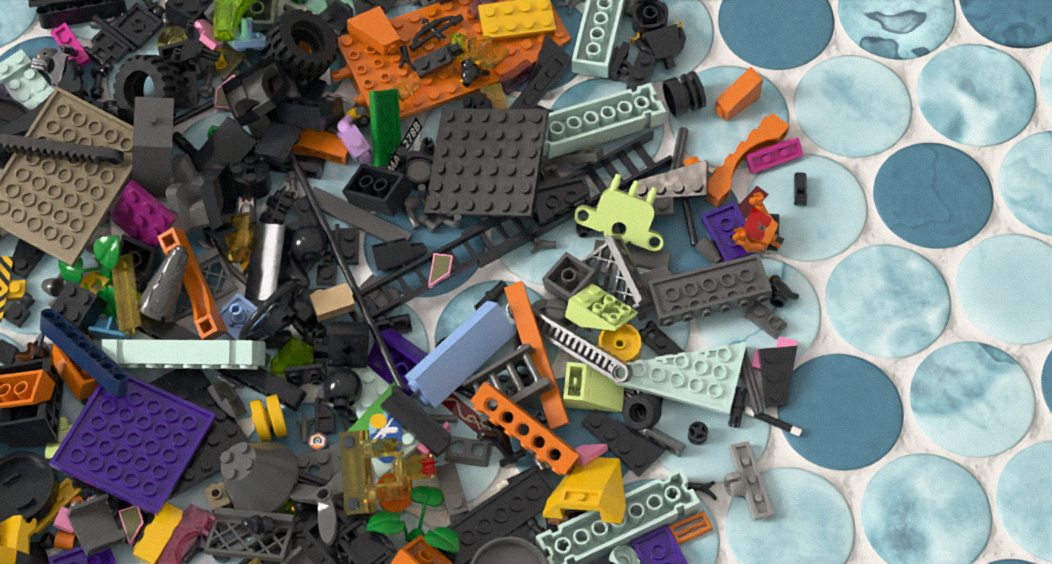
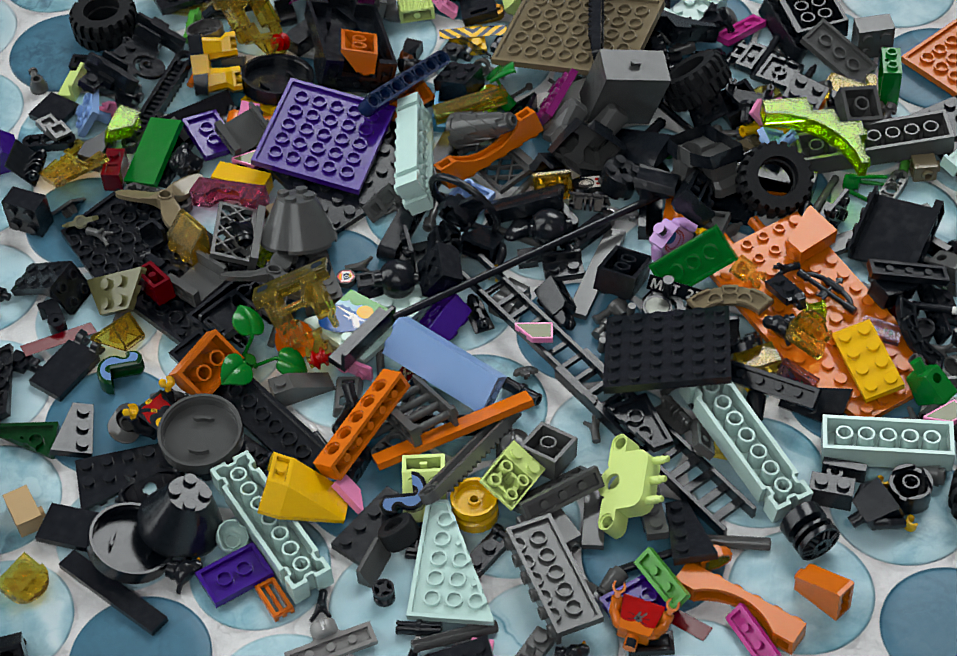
camera: 85 degrees right, 15 degrees down
(22, 292) = (473, 45): none -> black piece
(269, 418) = (359, 230): yellow wheel -> none
(292, 354) = (421, 234): clear neon green slope -> none
(332, 302) = (481, 248): tan brick -> none
(426, 107) = (731, 296): none -> dark tan tile
(468, 292) = (525, 371): none -> dark grey plant
(613, 398) = (407, 501): none -> animal
(719, 208) = (662, 578): none -> bright green plate

